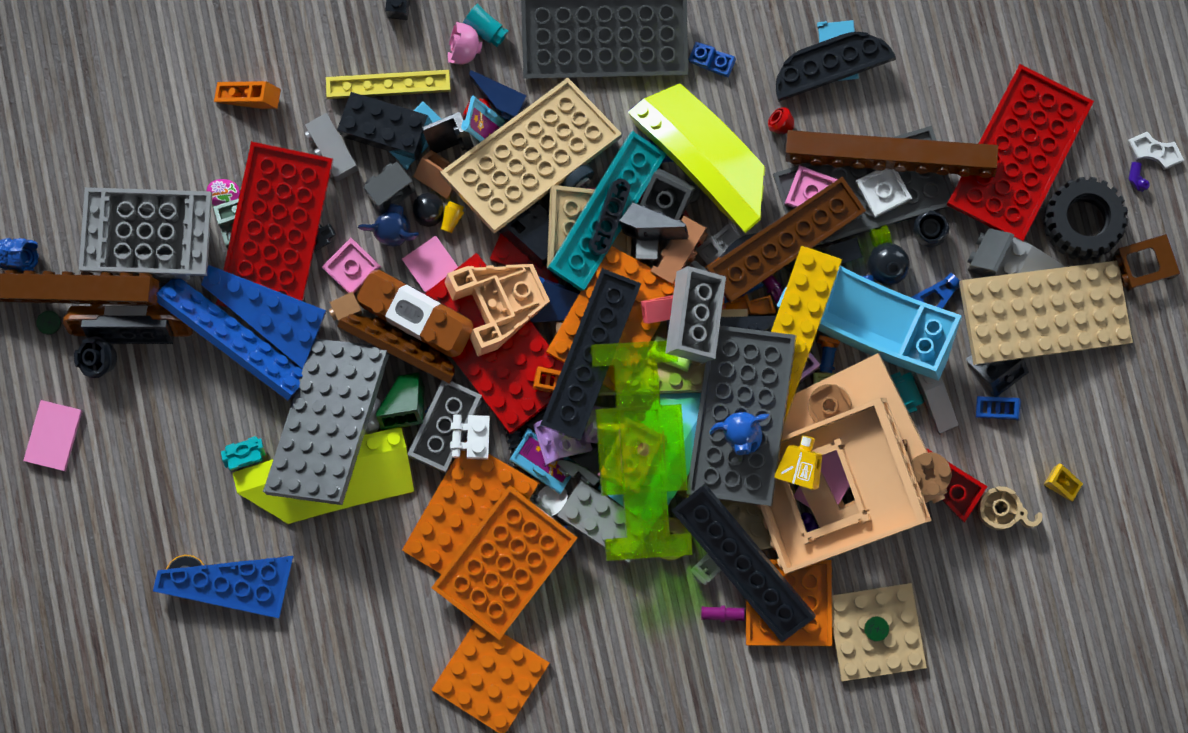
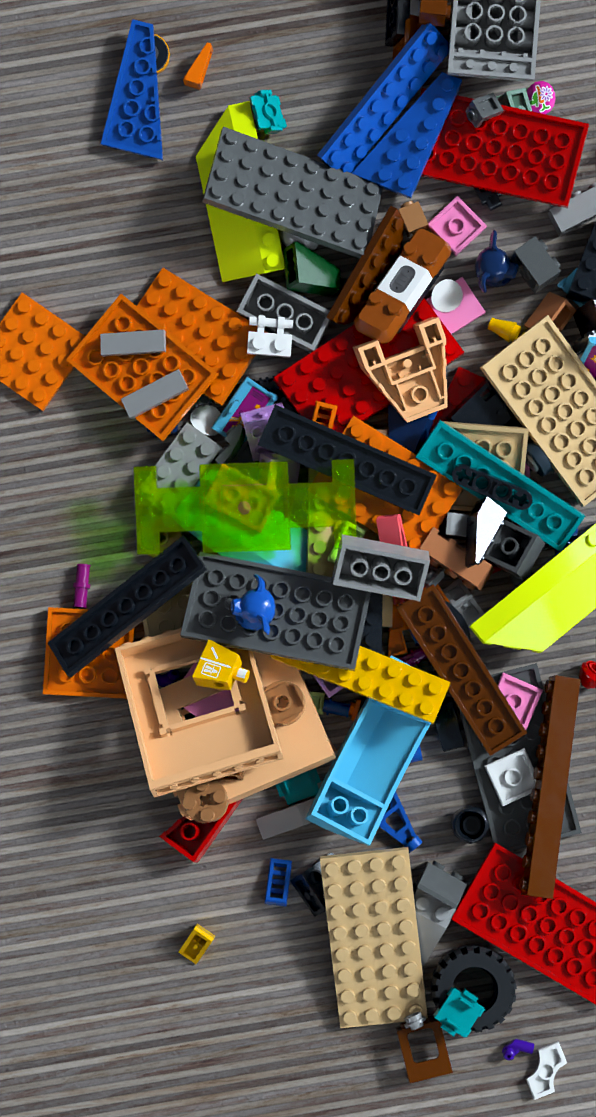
camera: 90 degrees right, 5 degrees up
(204, 525) = (196, 74): none -> orange slope
(238, 242) = (483, 109): none -> dark grey bracket
(421, 272) = (446, 295): none -> white sticker
(428, 209) = (513, 305): black hair -> none
(481, 571) = (133, 343): none -> light grey tile
(532, 546) = (154, 394): none -> light grey tile
(705, 570) = (124, 568): light grey bracket -> none
(864, 658) = (54, 741): tan plate -> none
(876, 628) = (56, 739): dark green piece -> none
(880, 236) = (463, 771): clear neon green wheel -> none
(888, 264) = (434, 777): black cylinder -> none
(1013, 510) = (167, 888): tan piece -> none
(1111, 227) = (459, 1012): none -> teal piece
(1121, 270) = (414, 1021): none -> light grey plate

